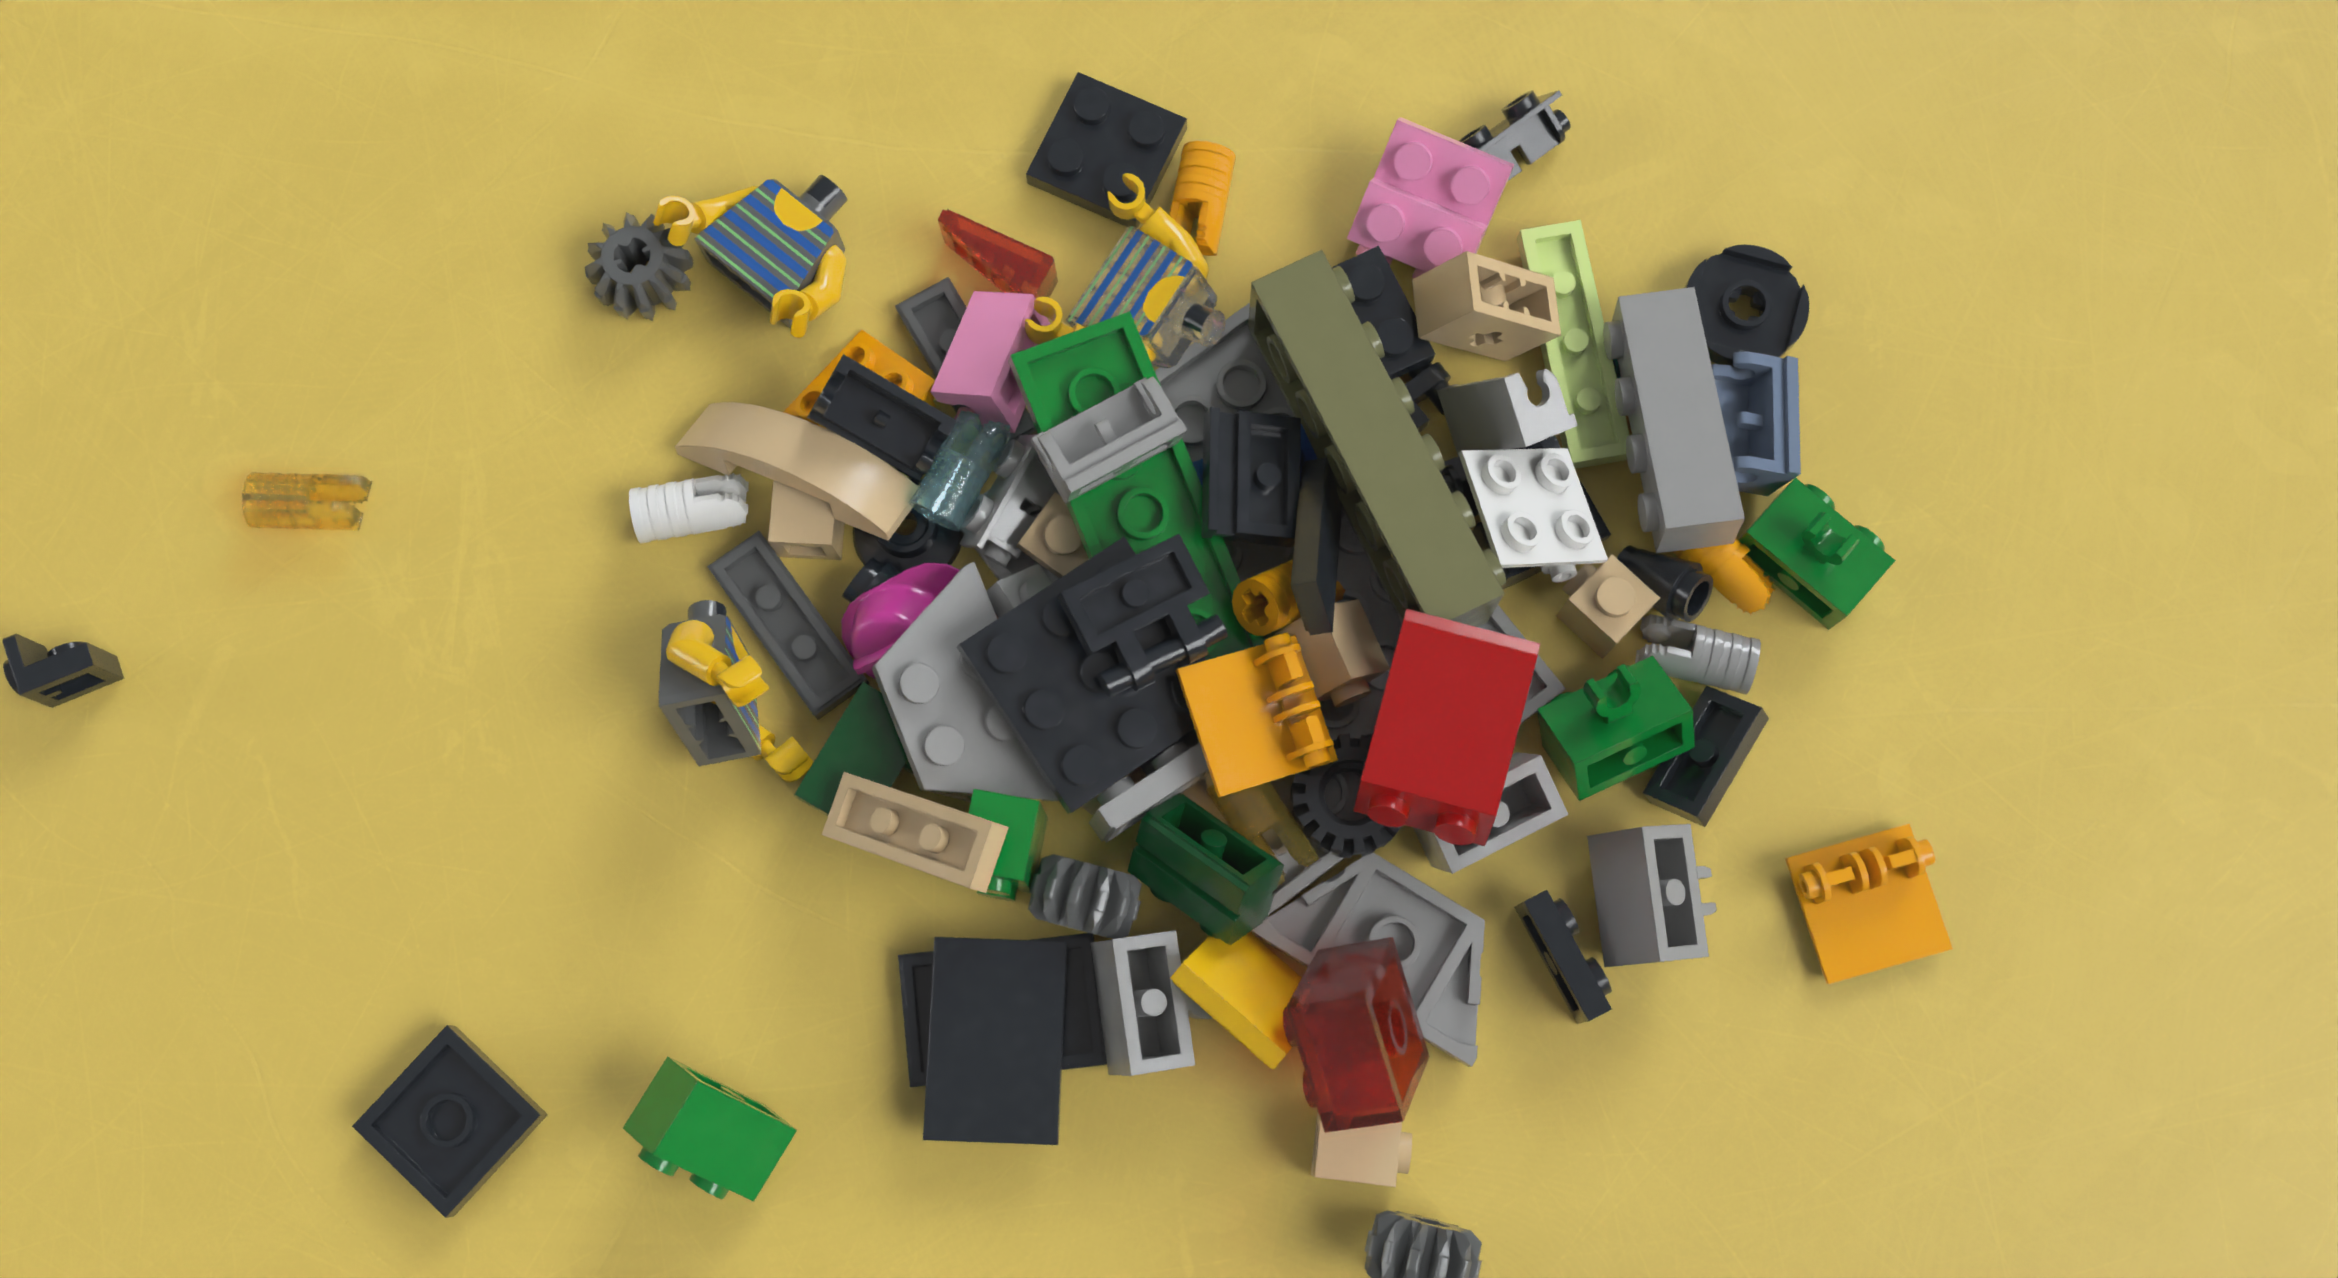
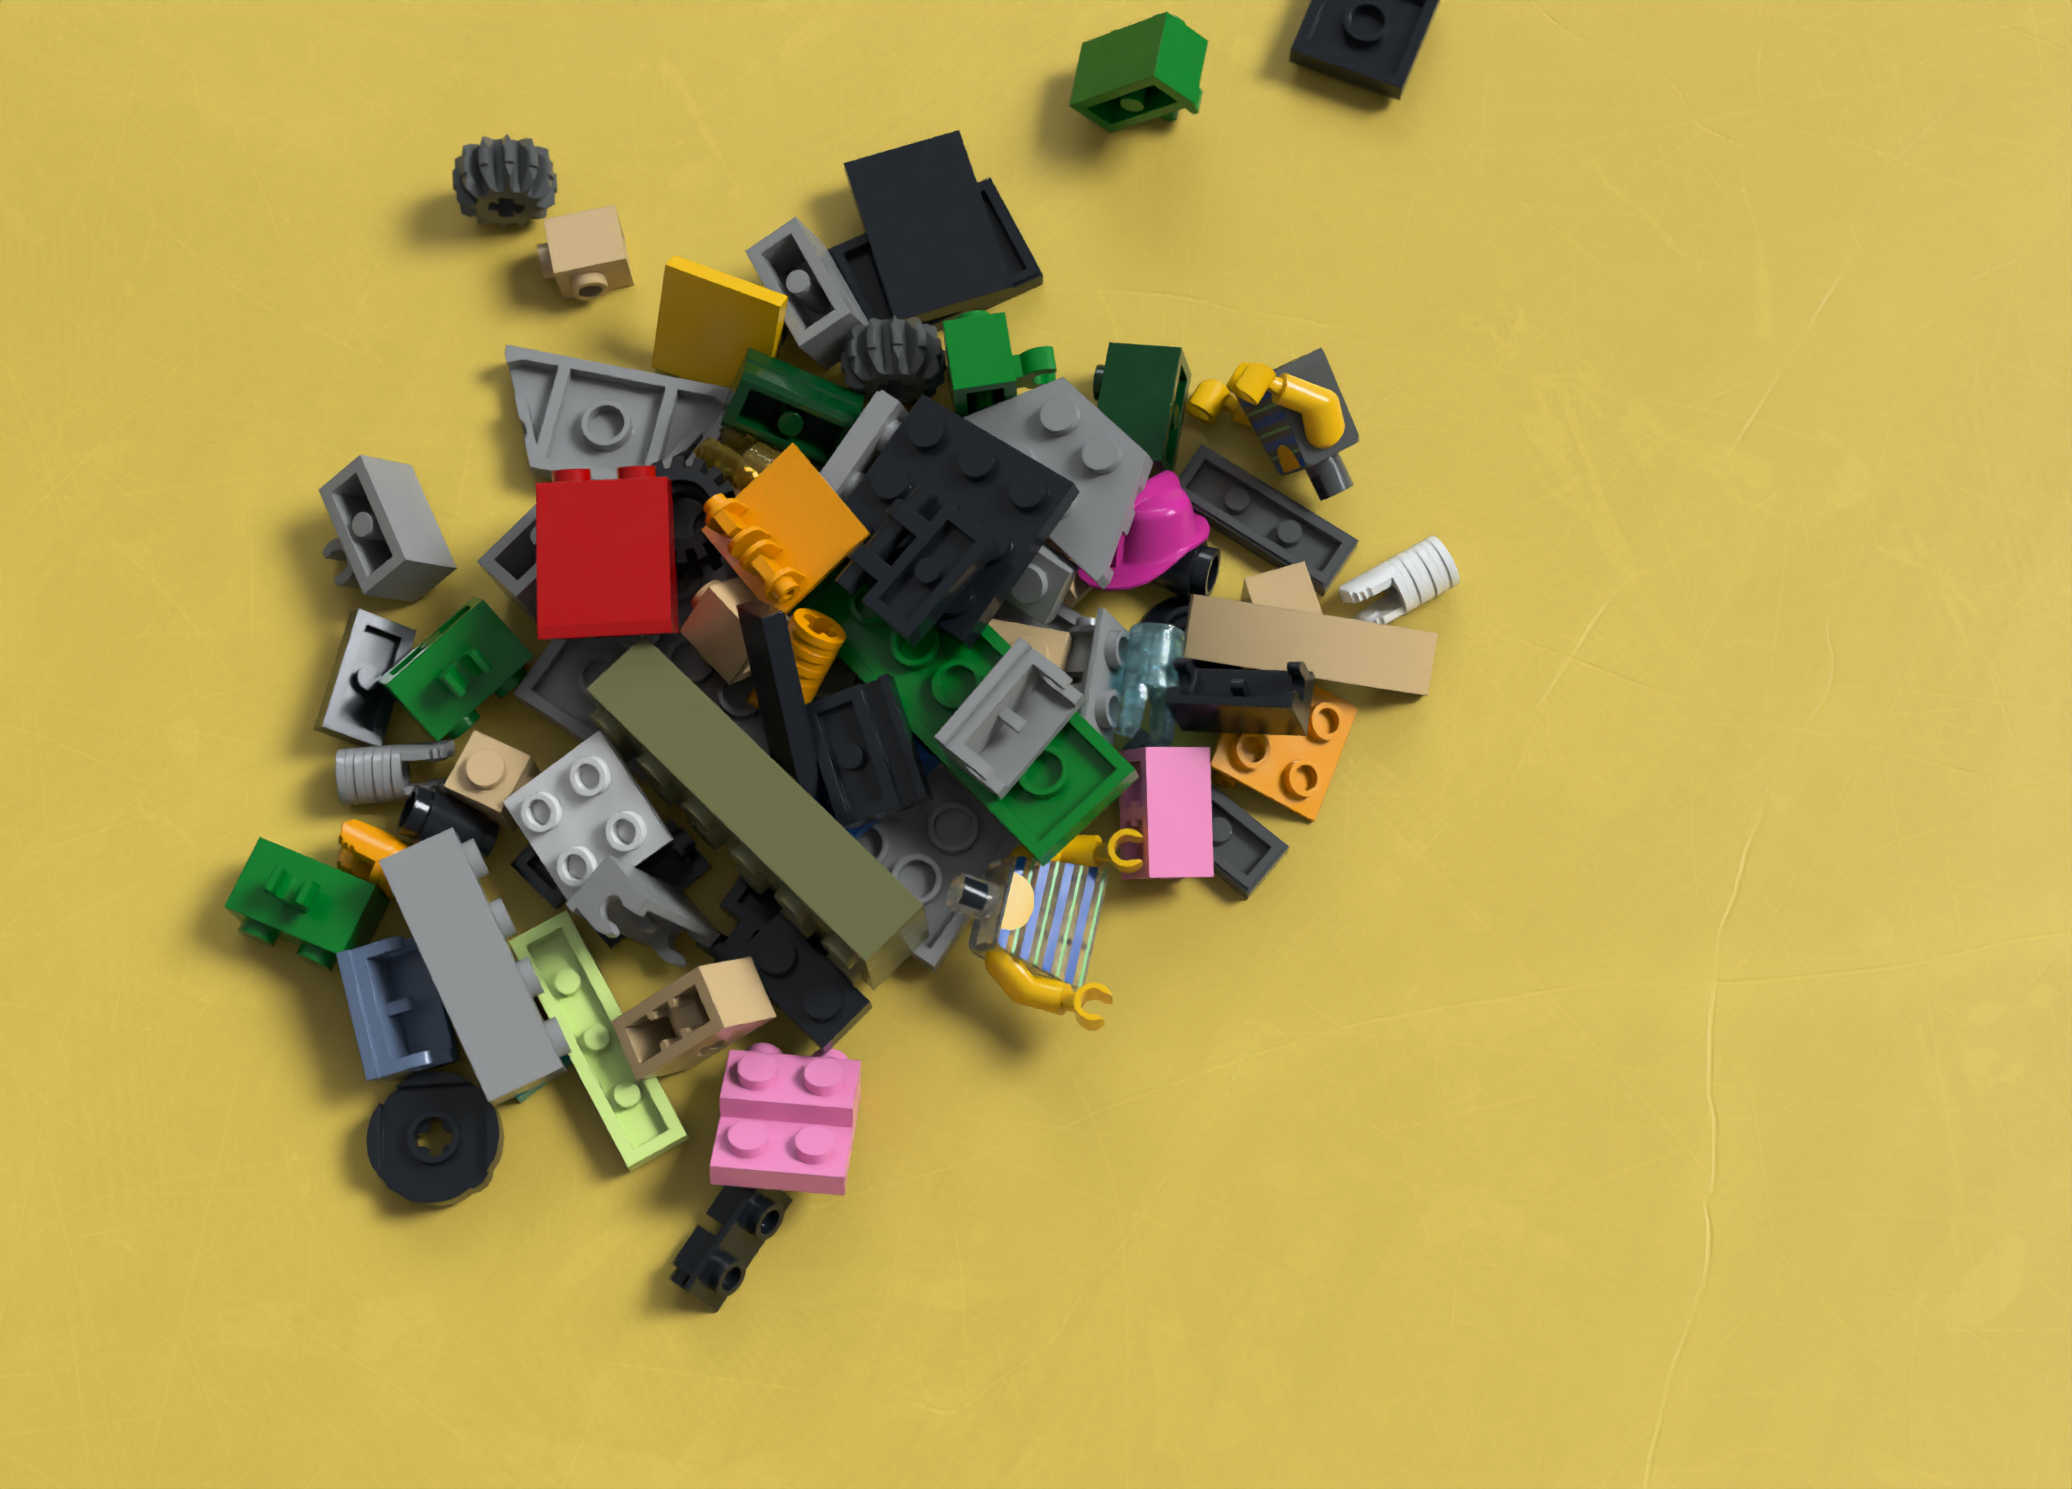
camera: 160 degrees right, 5 degrees down
(60, 673) = (1900, 242): black bracket -> none
(304, 501) = (1763, 467): clear yellow hinge -> none
(646, 284) = (1571, 776): dark grey gear -> none
(769, 245) = (1429, 853): torso -> none
(915, 832) = (1053, 327): tan plate -> none
(999, 258) = (1194, 921): clear red slope -> none
(1098, 140) = (1143, 1088): black plate -> none
(1203, 191) = (1025, 1069): light orange hinge -> none
(1357, 1035) = (610, 313): clear red brick -> none
(1578, 980) = (466, 479): black plate -> none
(1869, 903) = (183, 607): light orange hinge -> none

